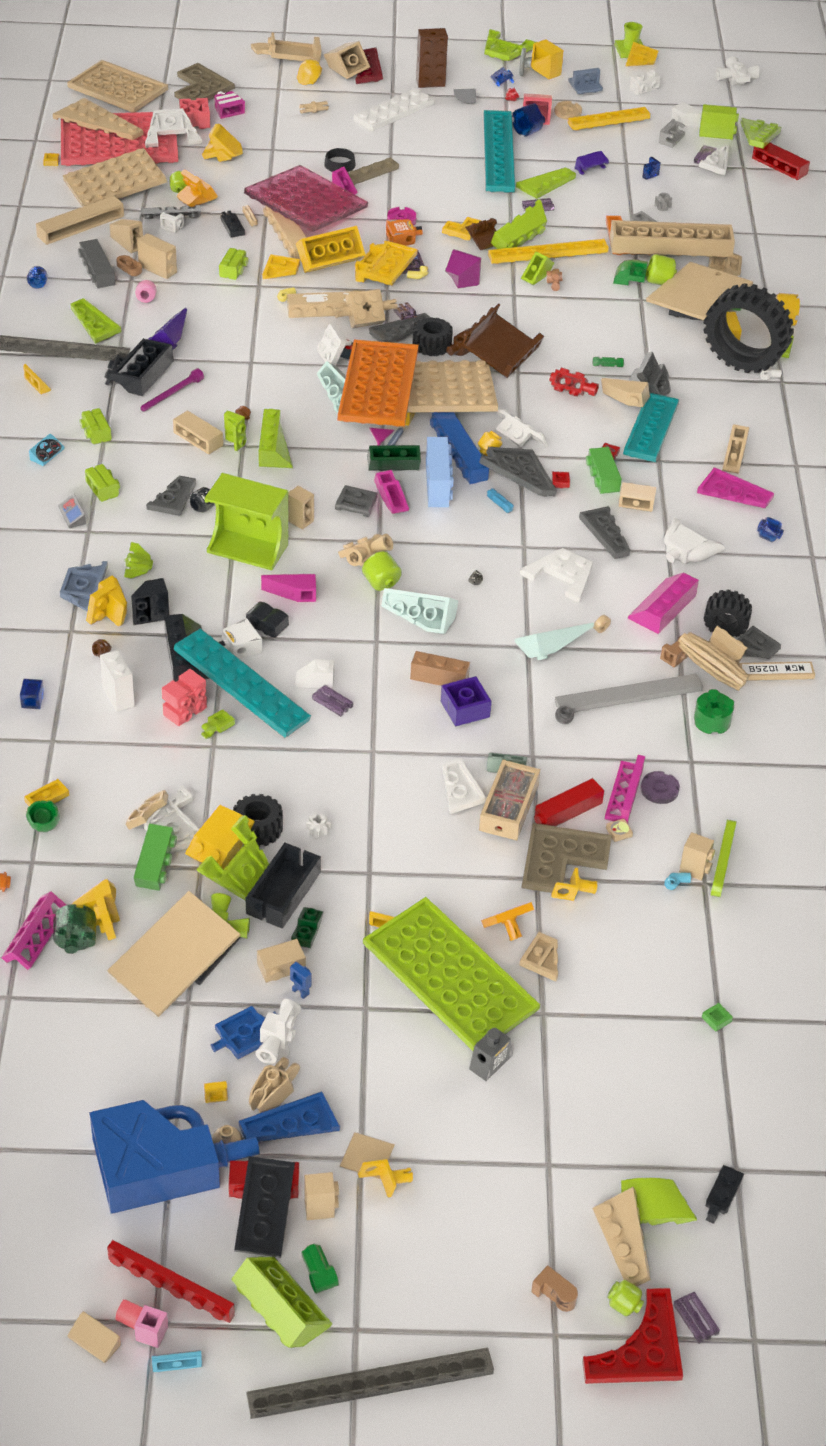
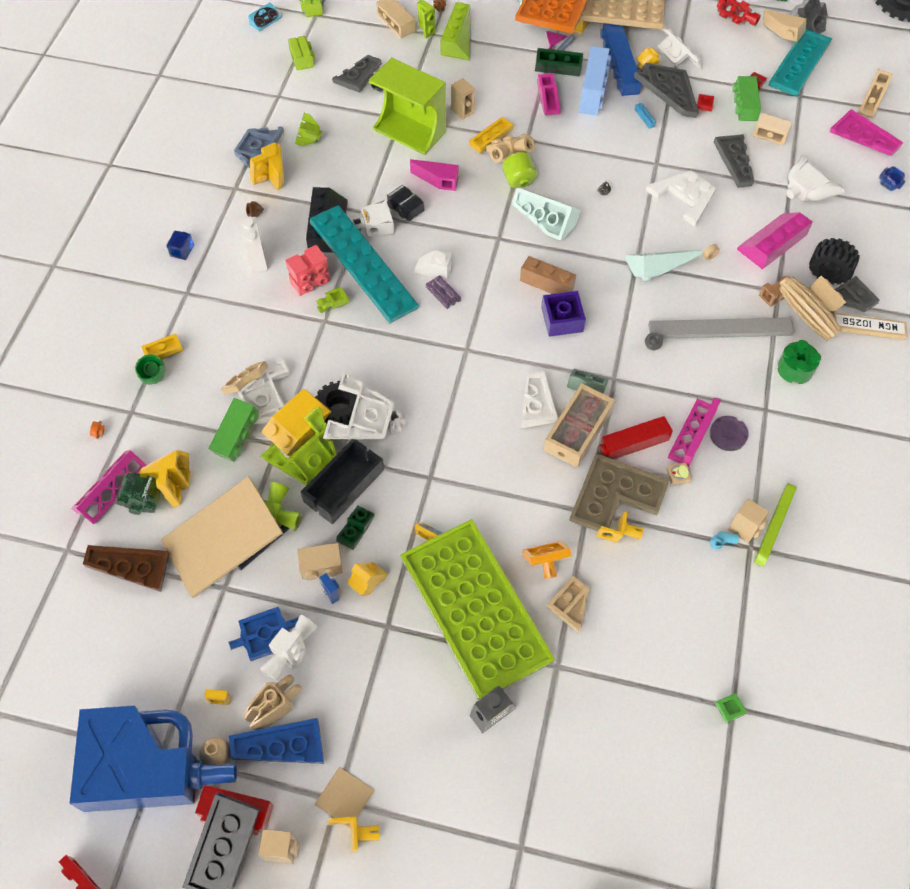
camera: 15 degrees right, 15 degrees up
(72, 512) = (268, 77): slope -> none
(87, 996) = (130, 564): none -> reddish brown wing
(150, 602) = (305, 171): black slope -> none
(294, 818) = (369, 414): none -> white wing
(333, 965) = (366, 577): none -> yellow brick
(342, 536) = (496, 130): none -> yellow plate
(356, 496) = (518, 95): dark grey plate -> none

